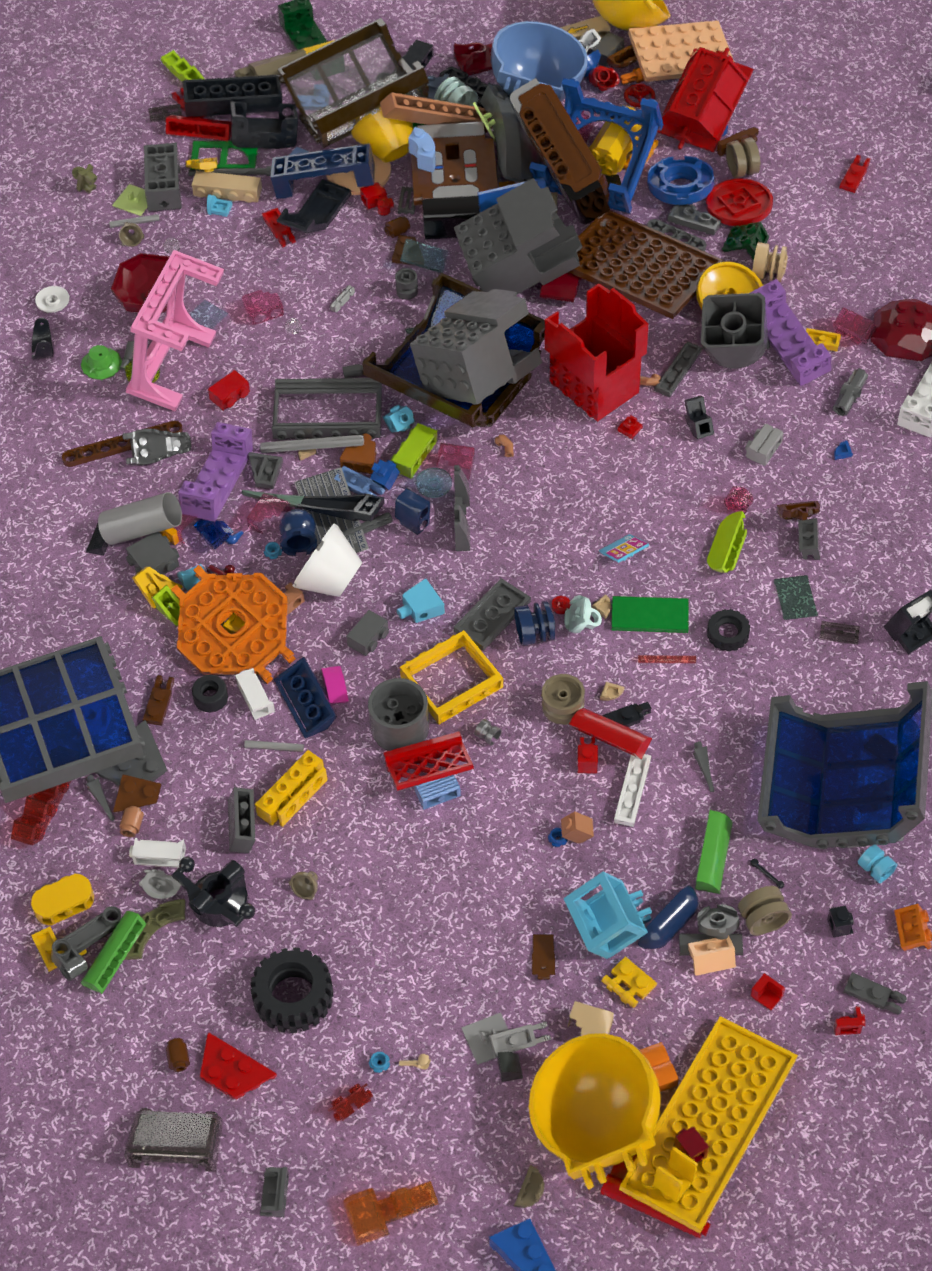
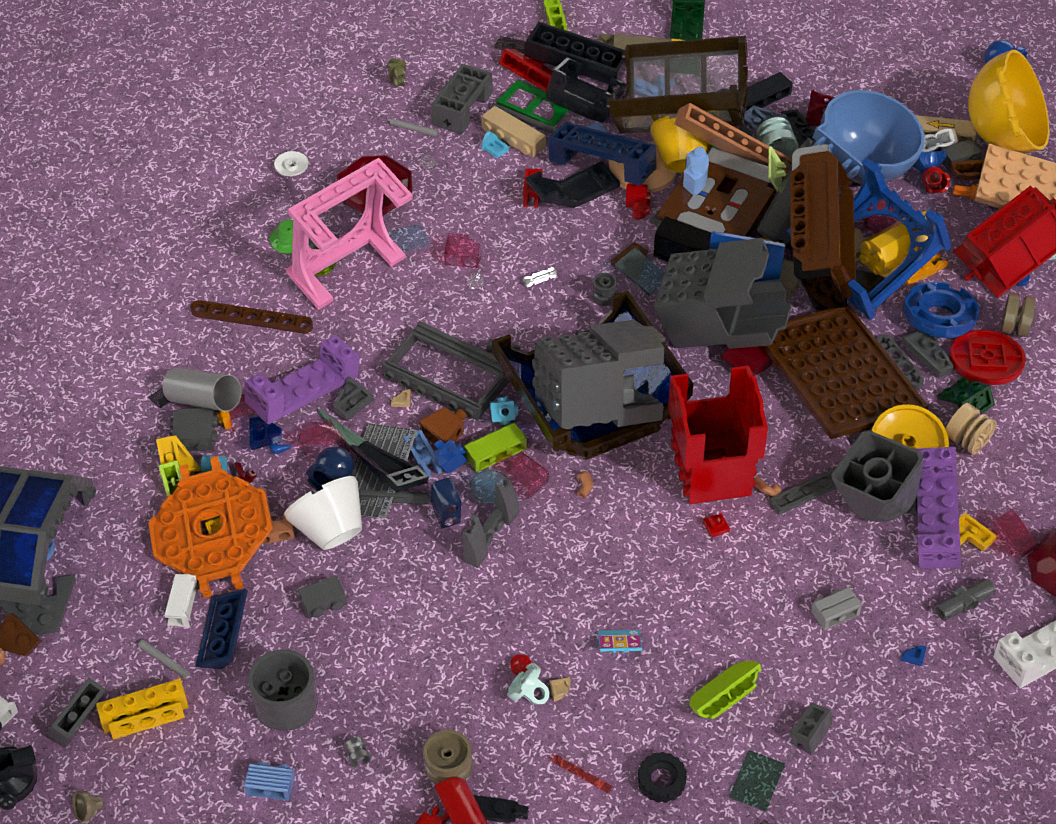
camera: 30 degrees right, 5 degrees down
(41, 340) = (256, 196): black piece -> none
(130, 239) = (396, 138): dark tan piece -> none
(132, 200) = (422, 109): yellowish green piece -> none
(154, 445) = (274, 331): dark grey animal -> none
(158, 701) = (100, 563): reddish brown hinge -> none
(207, 164) = (506, 103): yellow wing -> none
(210, 703) = (148, 589): black tyre -> none
(229, 390) = (375, 312): red brick -> none
(272, 546) = (298, 473): dark azure plate -> none
(314, 443) = (407, 395): light grey axle -> none
(335, 684) = (256, 630): dark pink slope -> none
(397, 226) = (637, 233): reddish brown brick -> none
(421, 603) = (391, 594): medium azure torso -> none
(424, 753) = (279, 740): red fence -> none
(471, 696) = (370, 708): yellow window -> none
(492, 613) = (449, 639): dark grey plate -> none
(534, 623) = (479, 670): dark blue wheel -> none
(611, 691) = (503, 776): tan tile -> none
(638, 91) = (963, 208): red piece -> none
(650, 614) = (599, 720): green tile -> none
(697, 419) = (787, 548): black brick -> none
(739, 499) = (767, 650): clear pink wheel -> none
(751, 132) = (1043, 296): reddish brown hinge -> none
(798, 510) = (820, 692): reddish brown plate -> none

